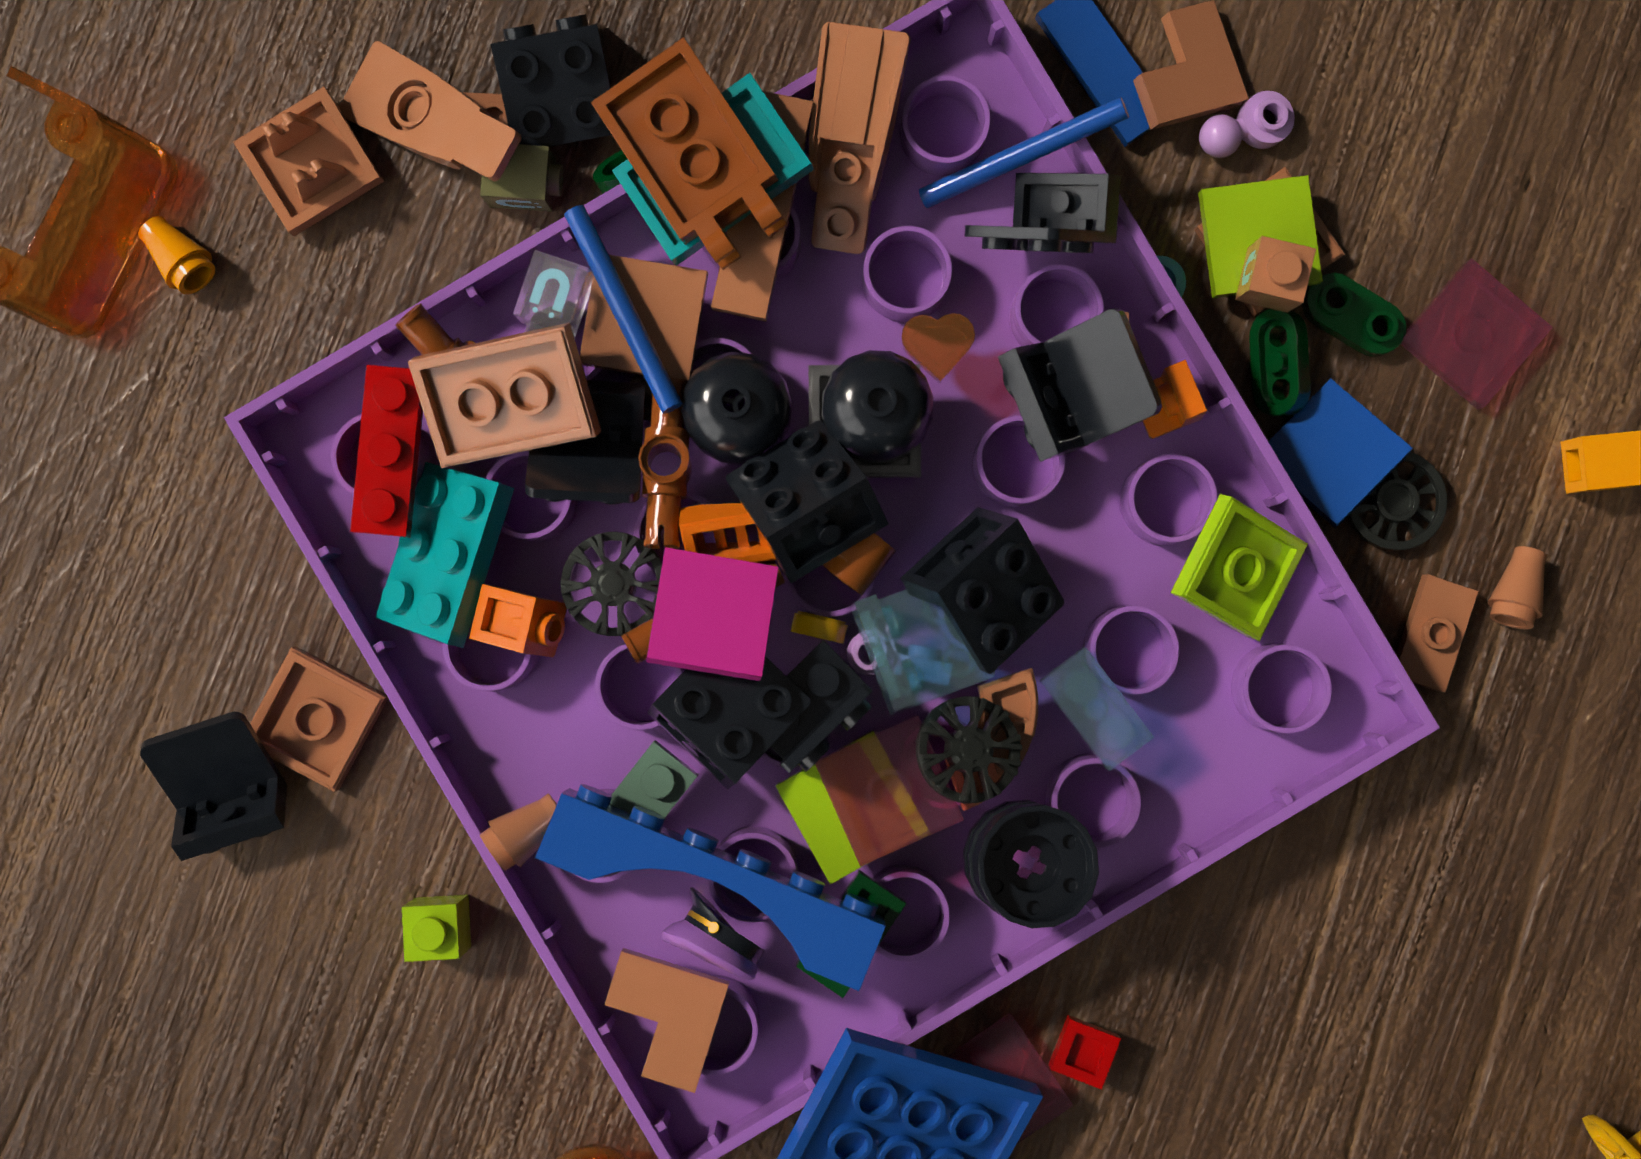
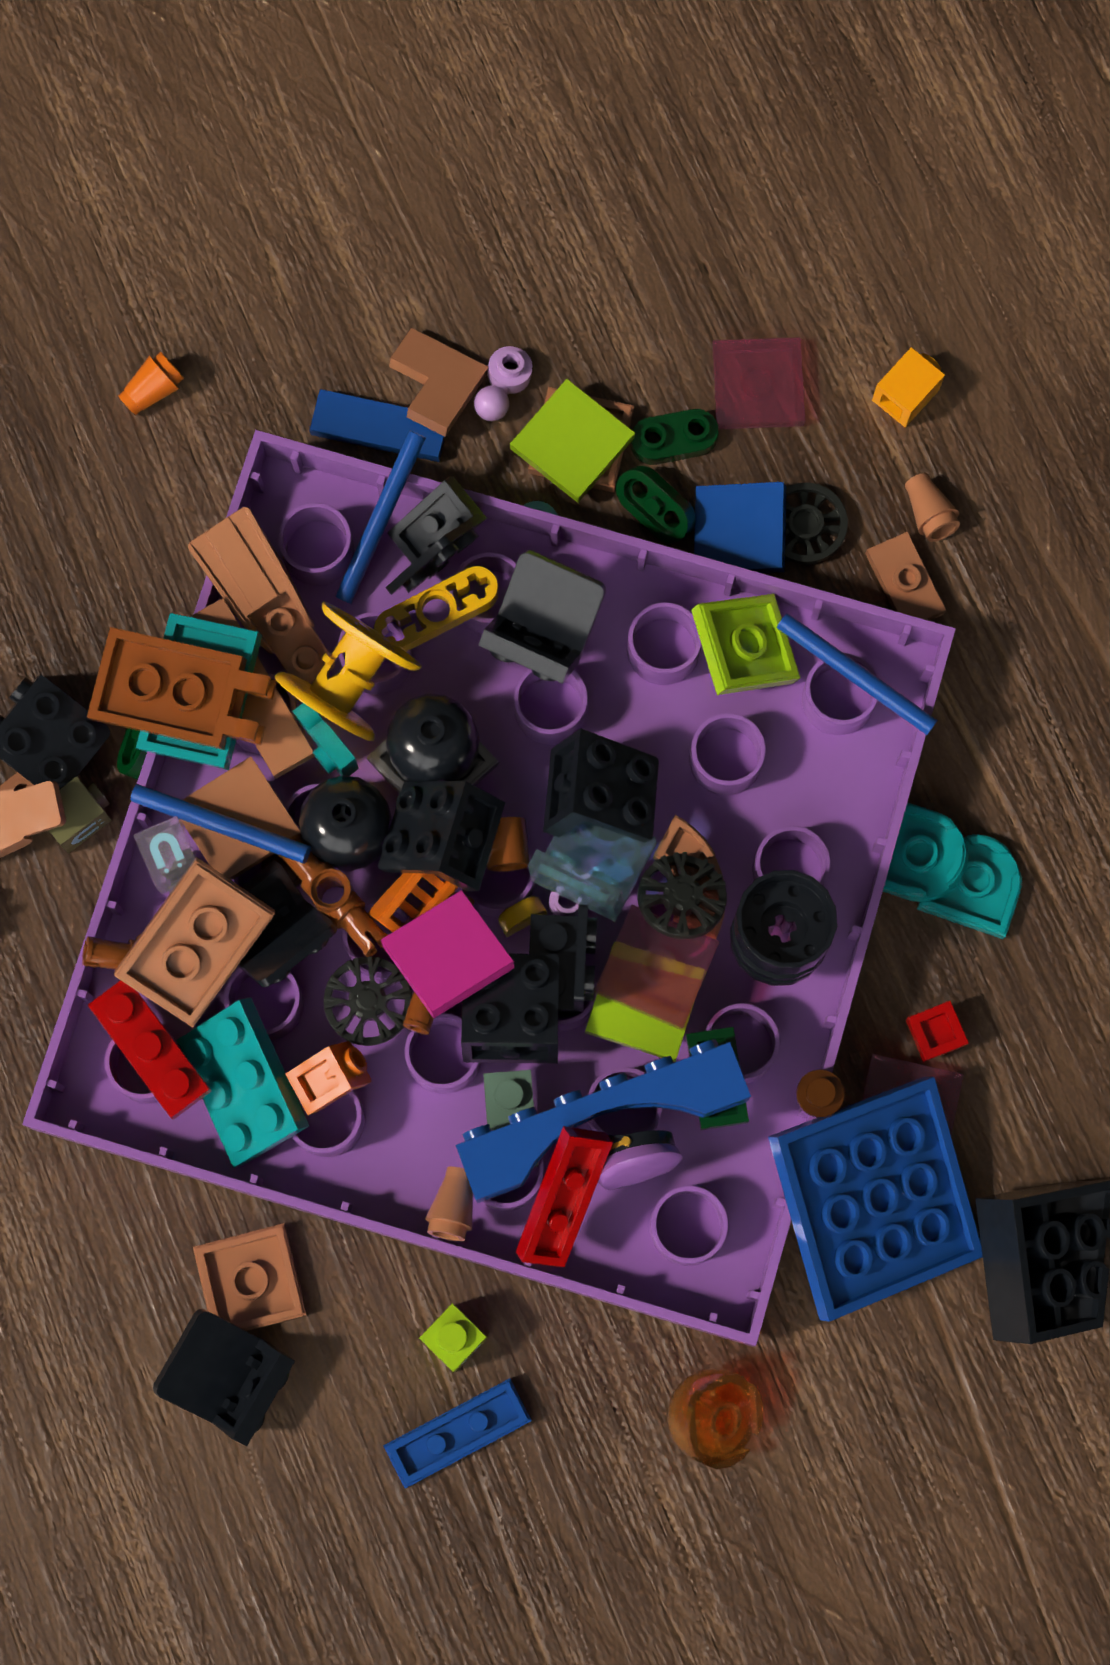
camera: 45 degrees left, 10 degrees down
(372, 1004) = (457, 1433): none -> blue tile
(621, 918) = (564, 1196): none -> red plate
(683, 1005) = (655, 1223): nougat tile -> none
(780, 332) = (331, 750): none -> teal plate
(823, 286) = (337, 695): none -> yellow piece
(928, 1028) = (820, 1093): none -> reddish brown plate
(937, 343) = (437, 672): clear orange tile -> none
(1011, 272) = (471, 603): none -> yellow beam
(1096, 708) = (738, 804): clear light blue plate -> none
(1179, 399) = (617, 576): orange bracket -> none
(1223, 898) = (926, 857): none -> teal tile
(1237, 951) = (986, 891): none -> teal tile
(1275, 274) = (601, 452): nougat brick -> none
(1312, 690) = (856, 674): none -> blue bar

